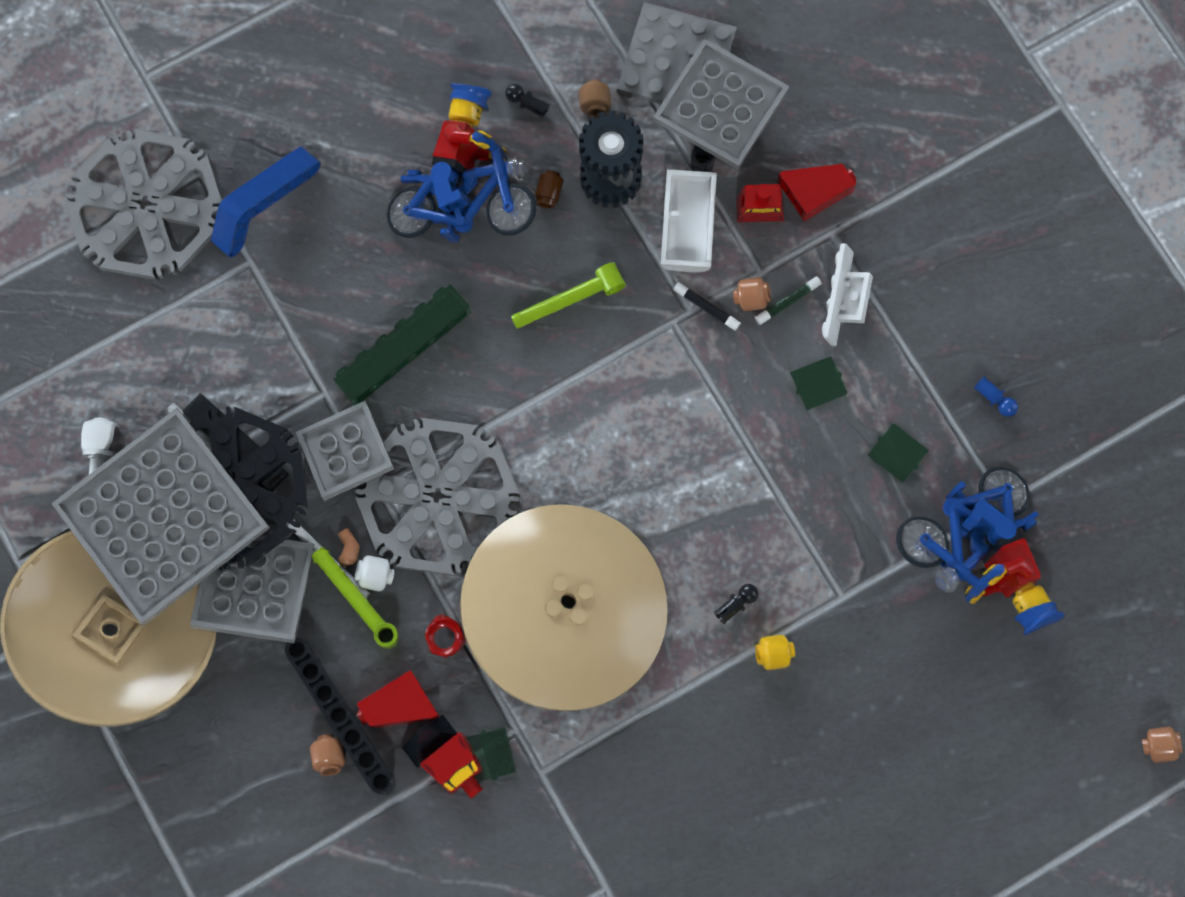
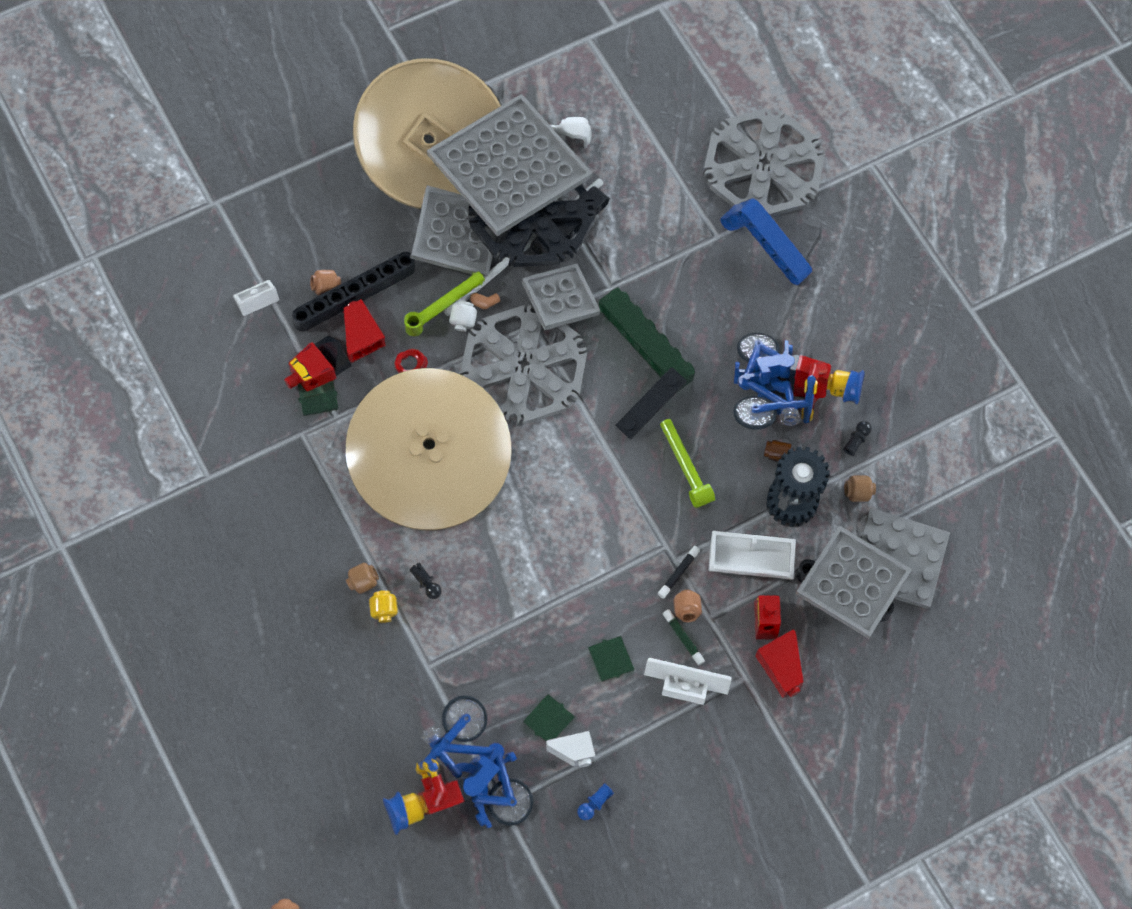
camera: 85 degrees right, 10 degrees down
(347, 847) = (256, 297): none -> white slope
(492, 337) = (651, 403): none -> black plate
(738, 680) = (362, 578): none -> medium nougat head
(935, 420) = (573, 749): none -> white slope

